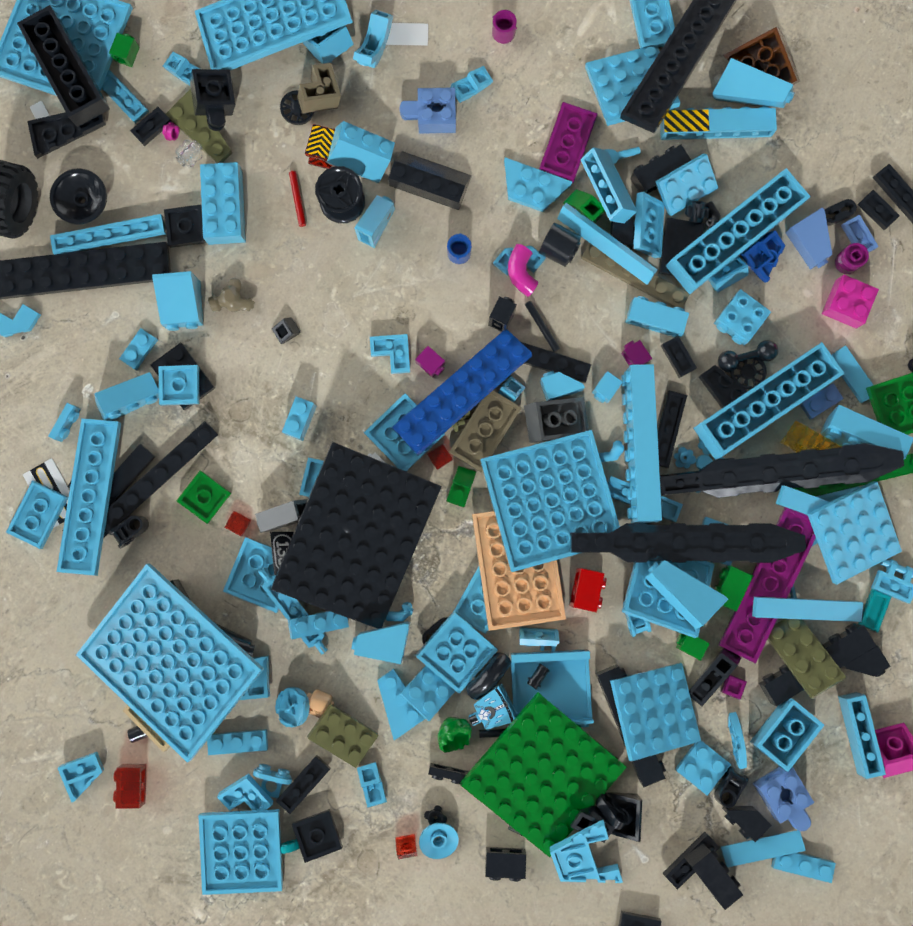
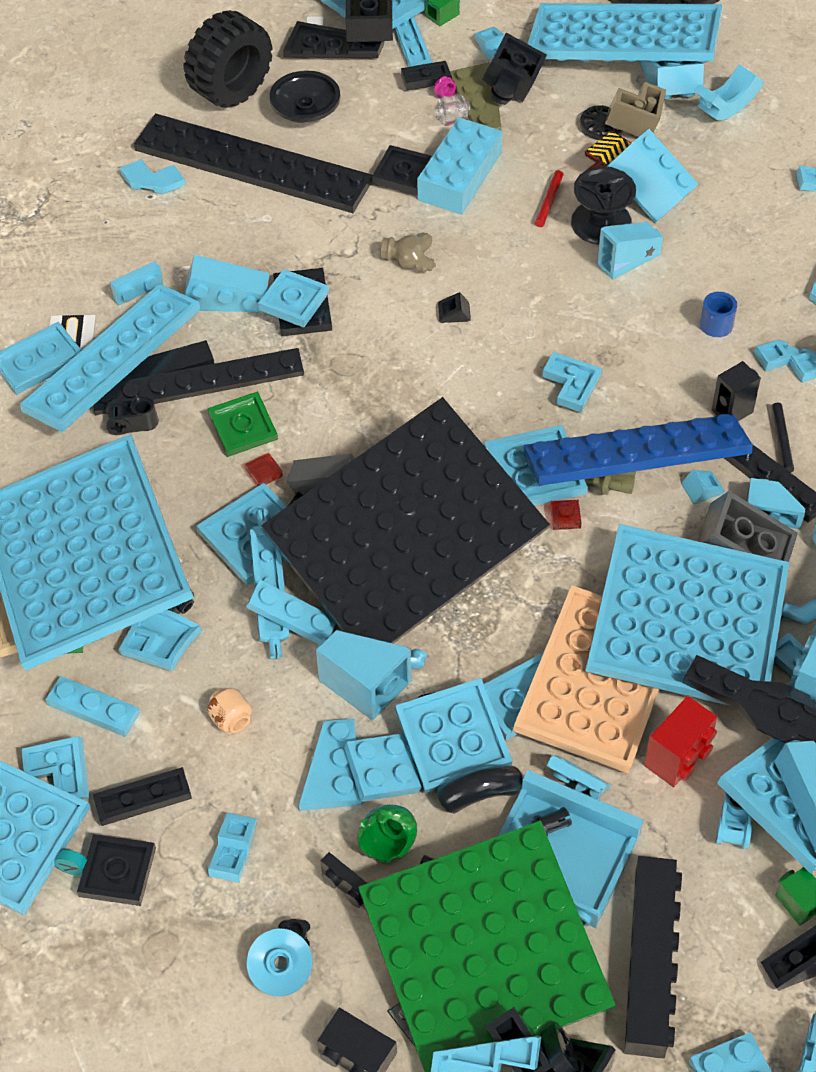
camera: 30 degrees right, 30 degrees down
(108, 234) = (314, 144): medium azure plate -> none
(138, 349) = (270, 255): medium azure plate -> none
(178, 300) = (350, 223): medium azure slope -> none
(280, 777) = (118, 768): medium azure bracket -> none
(292, 707) = (192, 693): medium azure tile -> none
(299, 418) = (412, 394): medium azure brick -> none
(342, 735) = (235, 759): olive plate -> none
(406, 846) = (228, 948): clear red plate -> none
(408, 34) = (773, 111): white sticker -> none
(429, 180) = (717, 241): black slope -> none
(430, 117) = (762, 179): medium blue brick -> none
(430, 362) = (614, 408): magenta brick -> none
(461, 486) = (574, 558): green slope -> none
(485, 430) = (648, 505): dark tan plate -> none
(494, 709) = (460, 824): medium azure torso -> none
(518, 270) = (781, 363): dark pink cylinder -> none
(655, 711) = (700, 948): medium azure plate -> none

